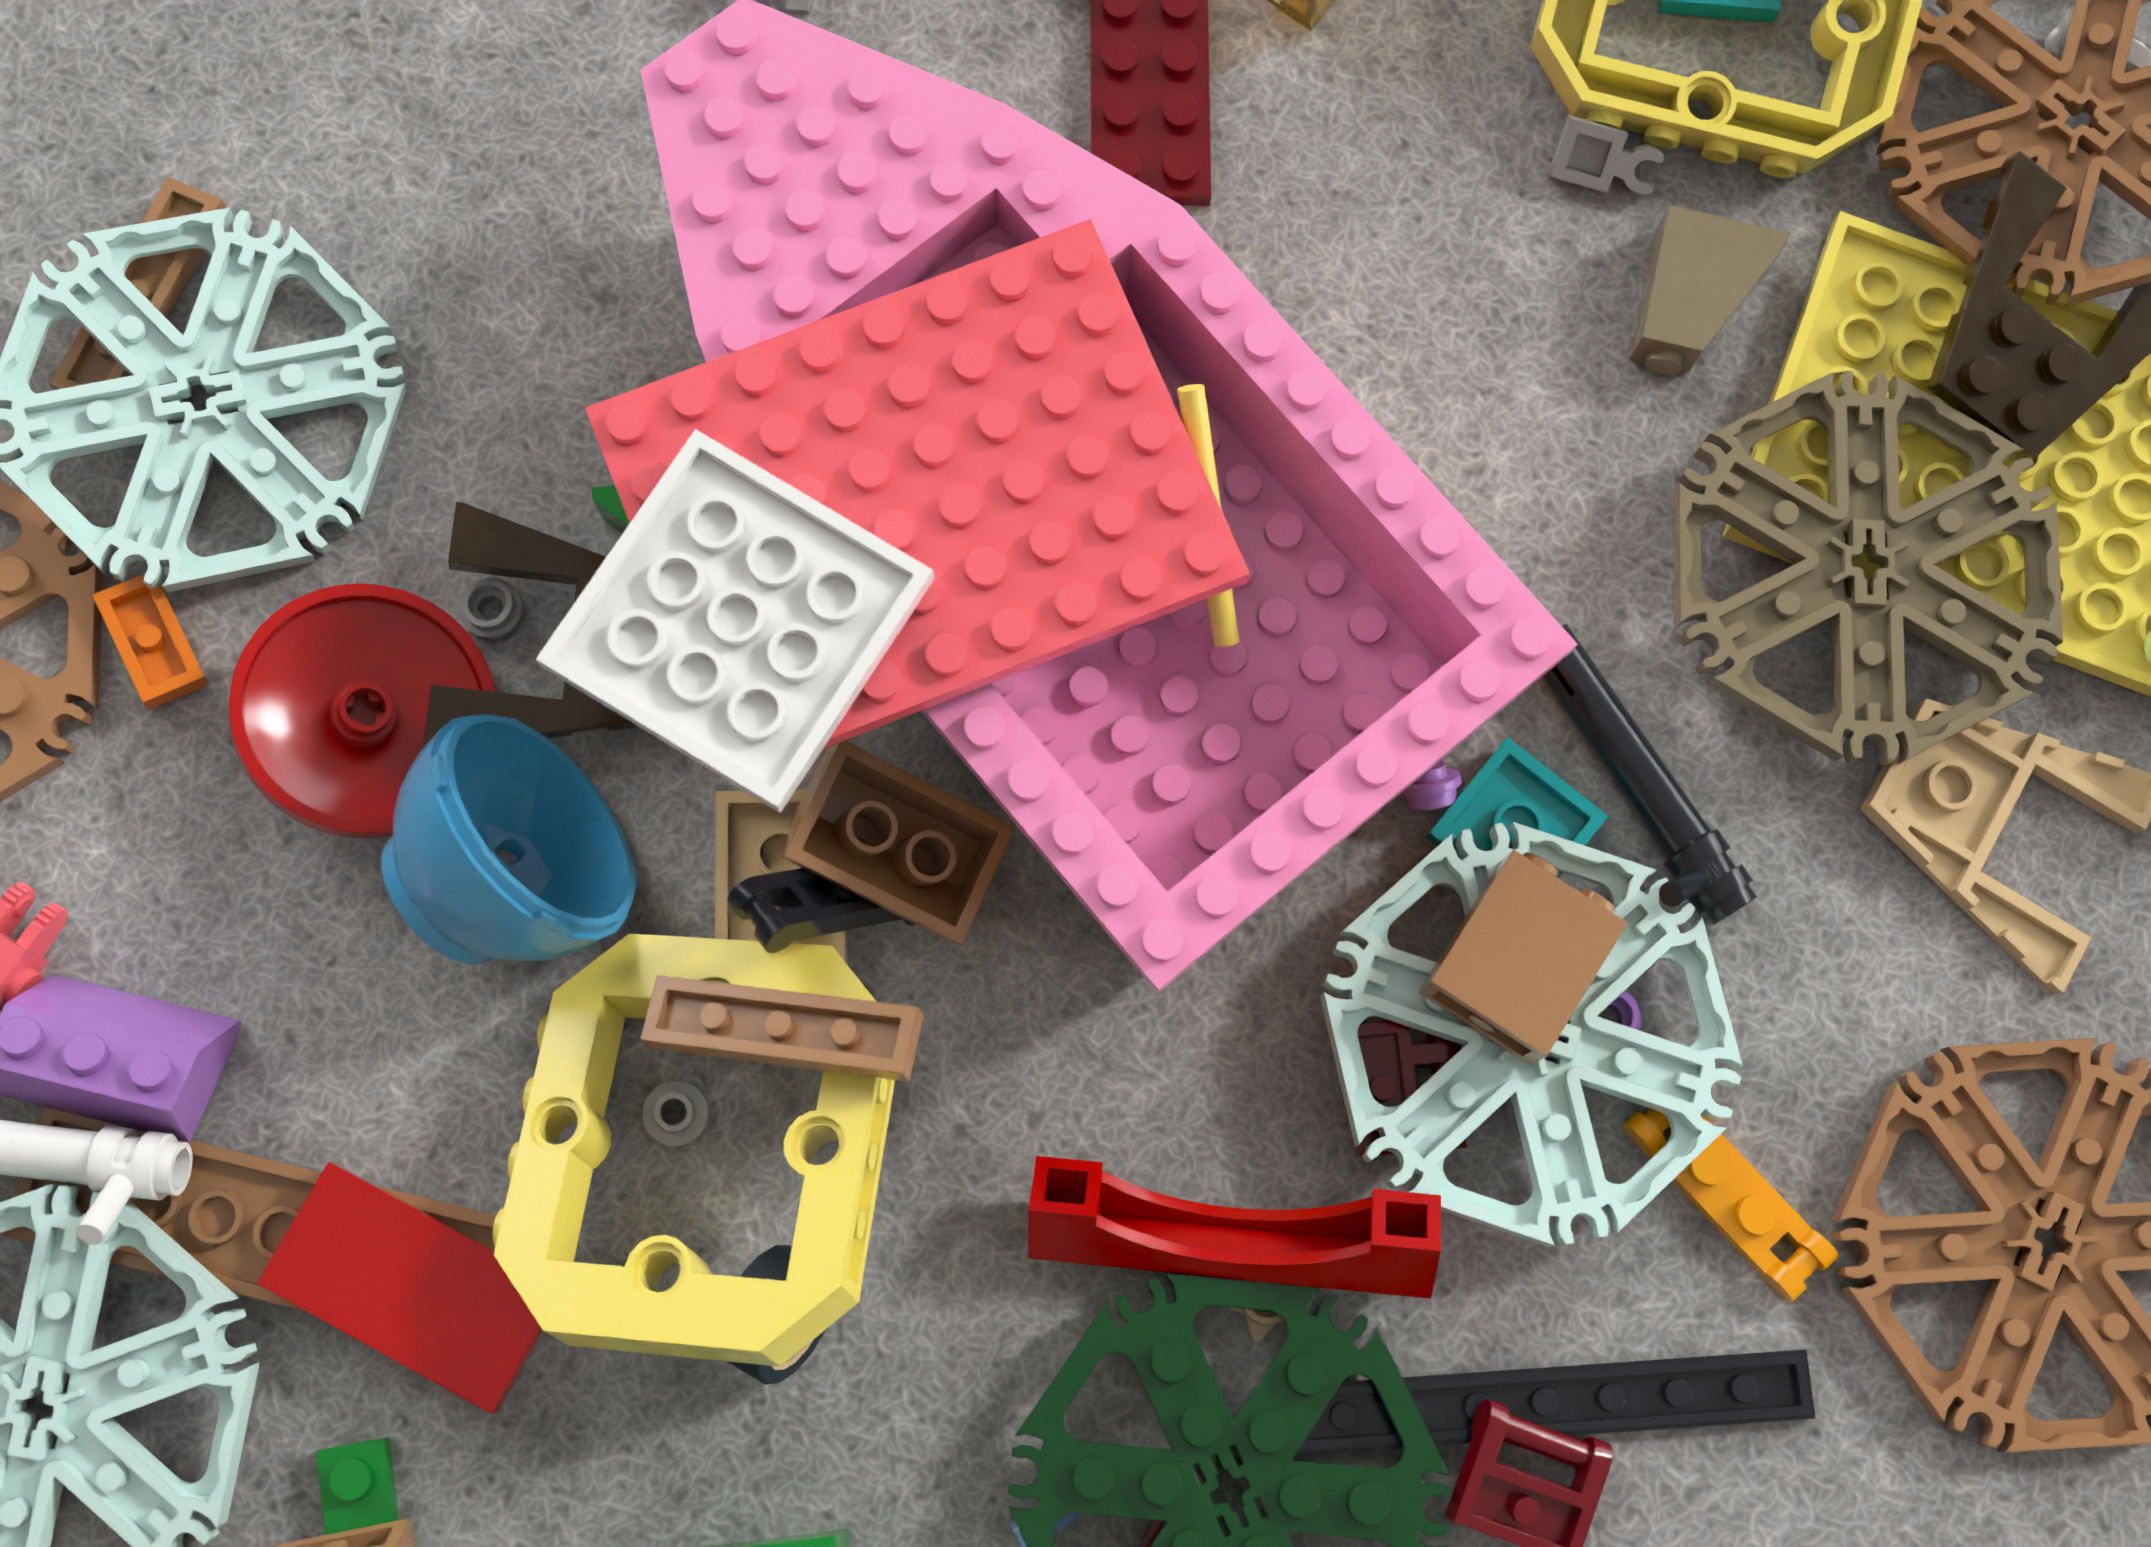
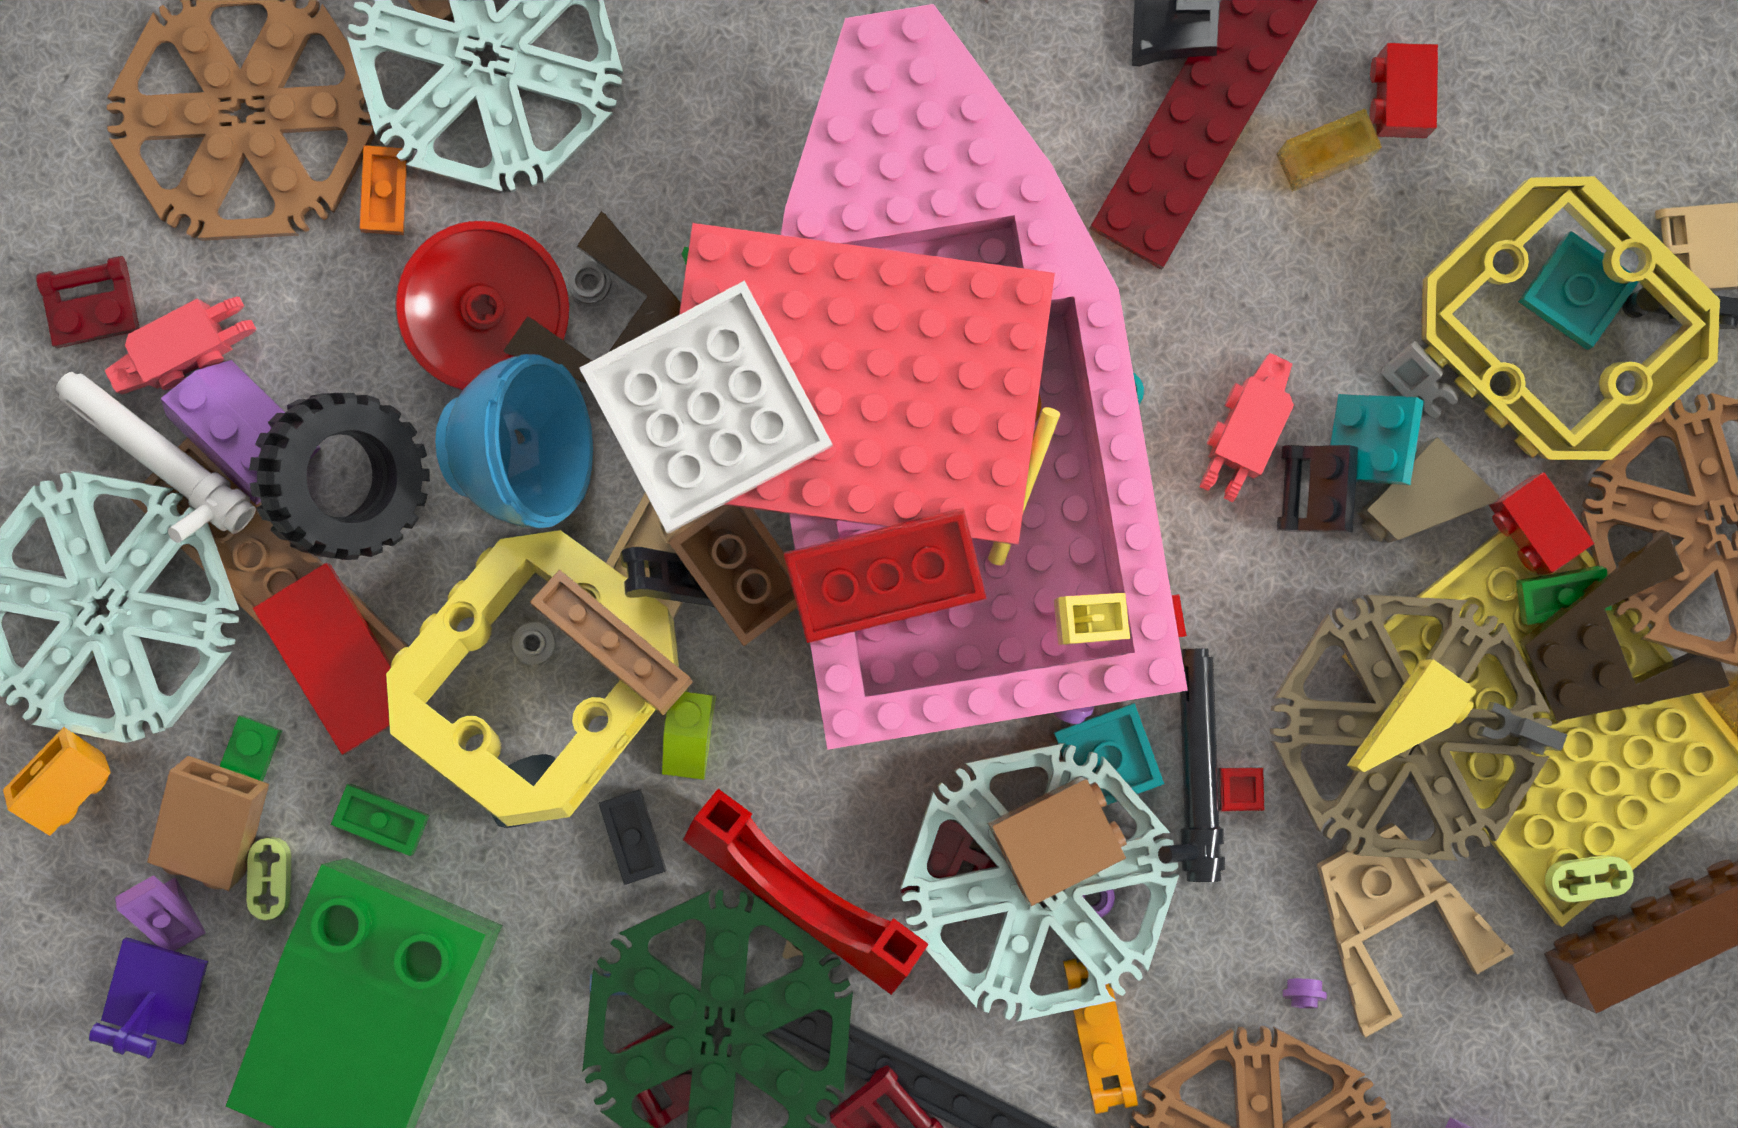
camera: 30 degrees right, 10 degrees up
(226, 1089) = (395, 475): none -> black tyre
(594, 1479) = (380, 819): none -> green plate
(954, 1114) = (688, 735): none -> lime slope
(957, 1295) = (632, 837): none -> black plate
(1101, 709) = (885, 575): none -> red tile
(1397, 617) = (1091, 618): none -> light yellow slope
(1436, 322) = (1251, 427): none -> coral hinge
(1581, 339) = (1330, 488): none -> black plate
(1595, 251) = (1384, 433): none -> teal plate
(1707, 770) = (1241, 789): none -> red tile
(1860, 236) = (1540, 525): none -> red brick
(1869, 522) = (1422, 708): none -> light yellow slope
(1922, 314) = (1546, 594): none -> green plate
(1952, 980) = (1304, 993): none -> medium lavender plate
(2018, 479) = (1531, 735): none -> dark grey plate

